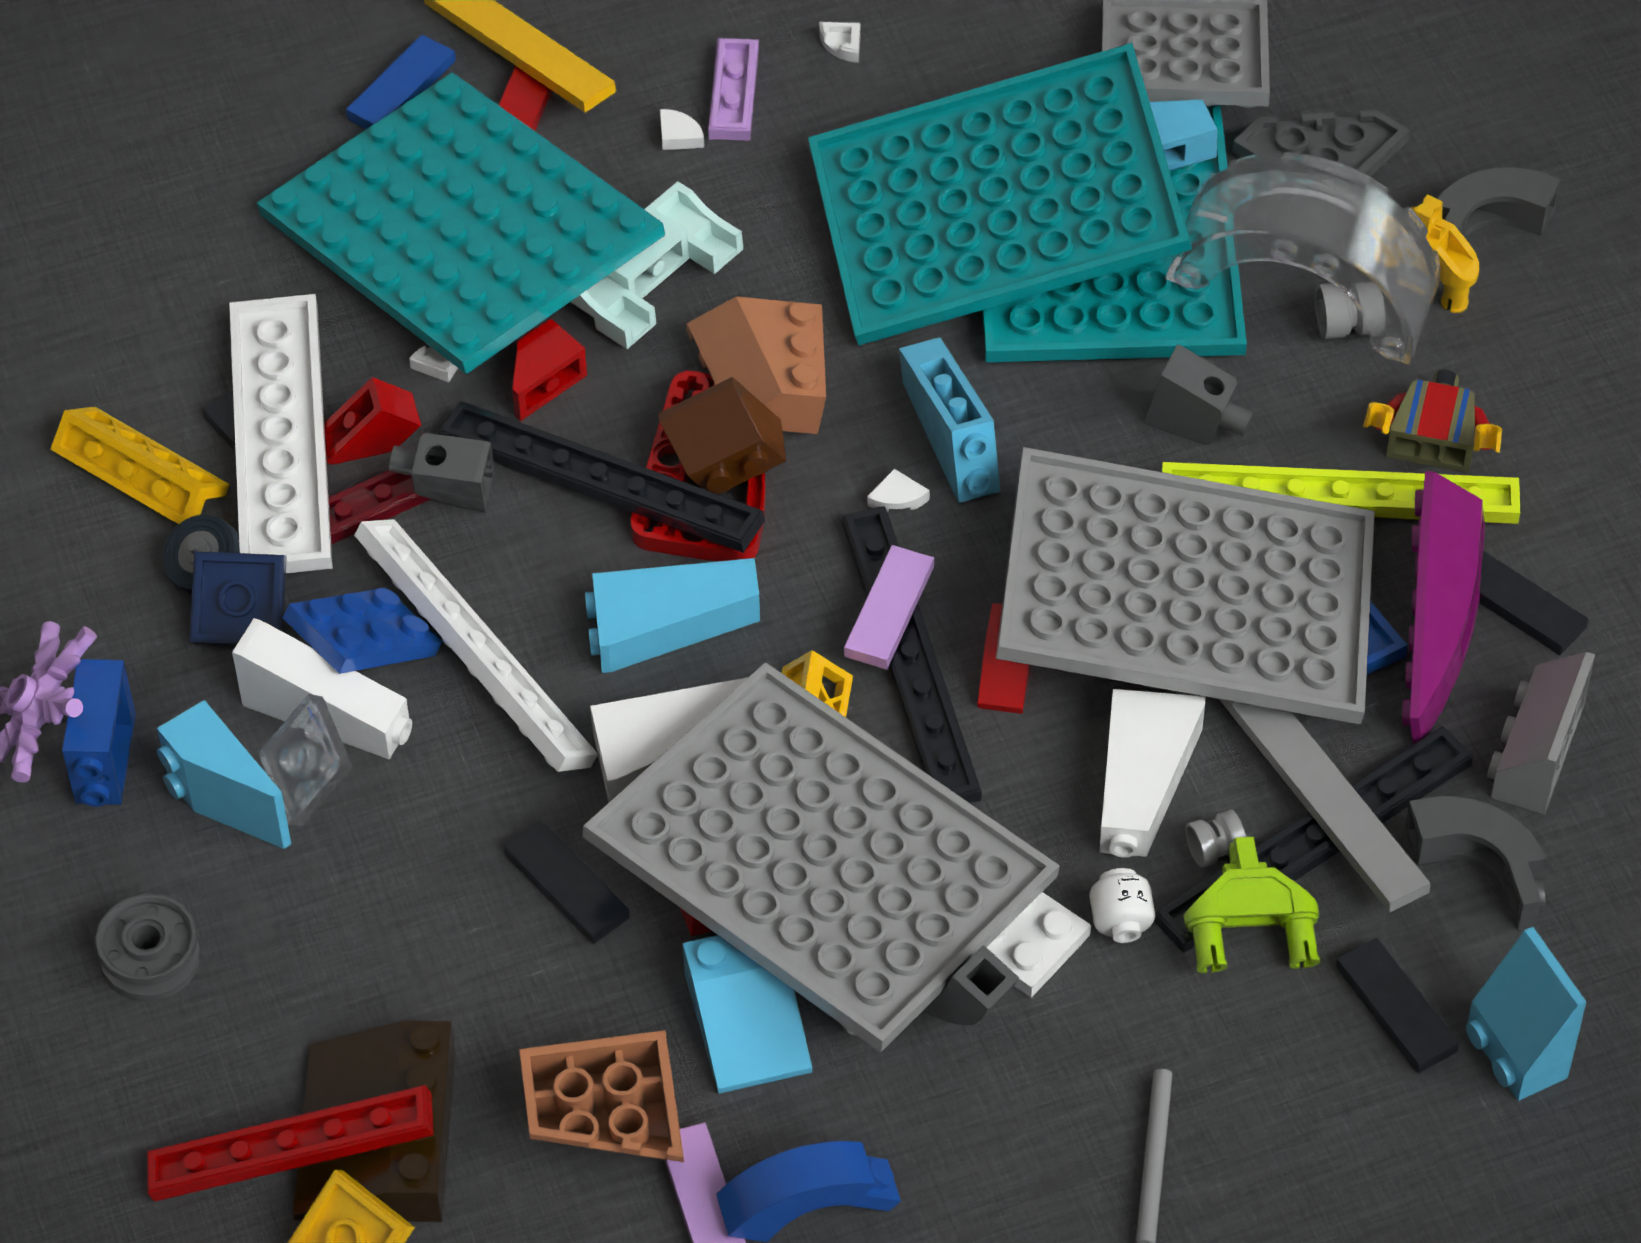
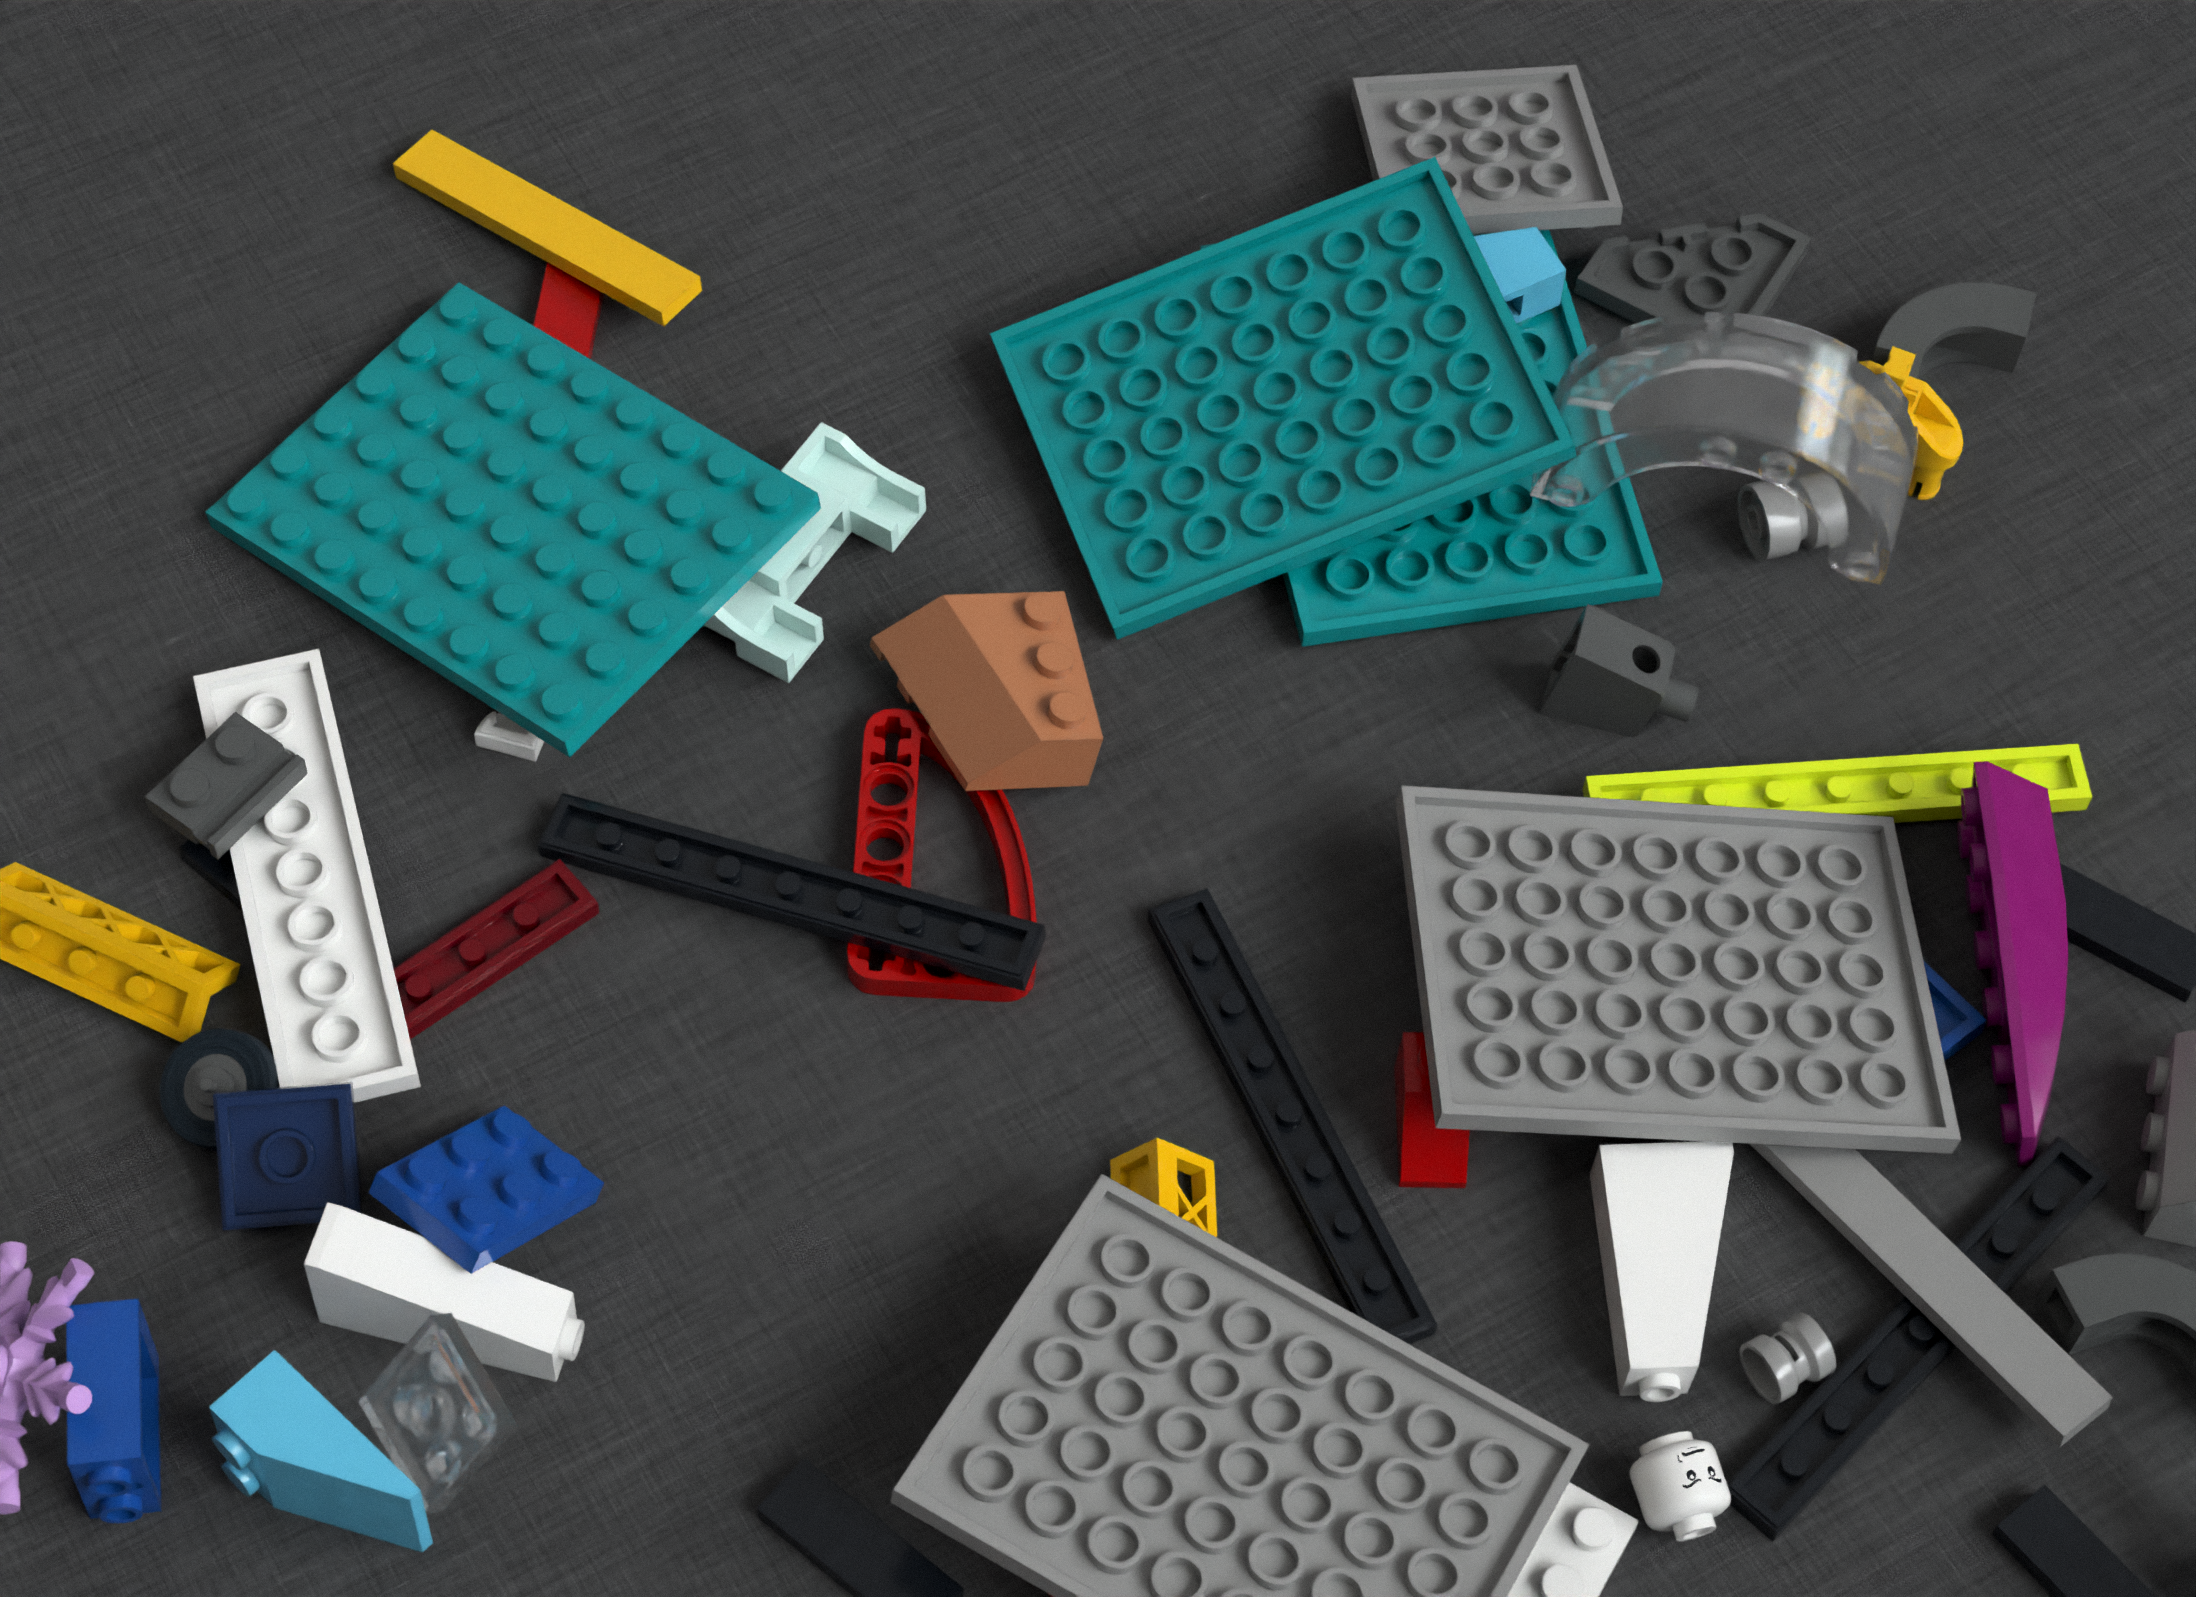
camera: 15 degrees left, 5 degrees up
(238, 369) = (226, 785): none -> dark grey plate
(370, 422) = (437, 845): red slope -> none
(401, 81) = (385, 303): blue tile -> none
(448, 469) = (595, 915): dark grey torso -> none
(476, 645) = (658, 1185): white plate -> none
(545, 367) = (679, 724): red slope -> none
(641, 729) = (945, 1300): white slope -> none
(668, 608) = (926, 1090): medium azure slope -> none
(680, 131) = (800, 337): white tile -> none
(724, 436) = (967, 816): reddish brown slope -> none
(733, 89) = (864, 267): lavender tile -> none
(841, 39) = (1000, 177): white tile -> none
(889, 607) = (1249, 1050): lavender tile -> none
(898, 492) = (1220, 864): white tile -> none
(952, 419) = (1279, 742): medium azure slope -> none
(1249, 897) = (1861, 1449): lime connector -> none
(1435, 424) = (1951, 675): torso -> none

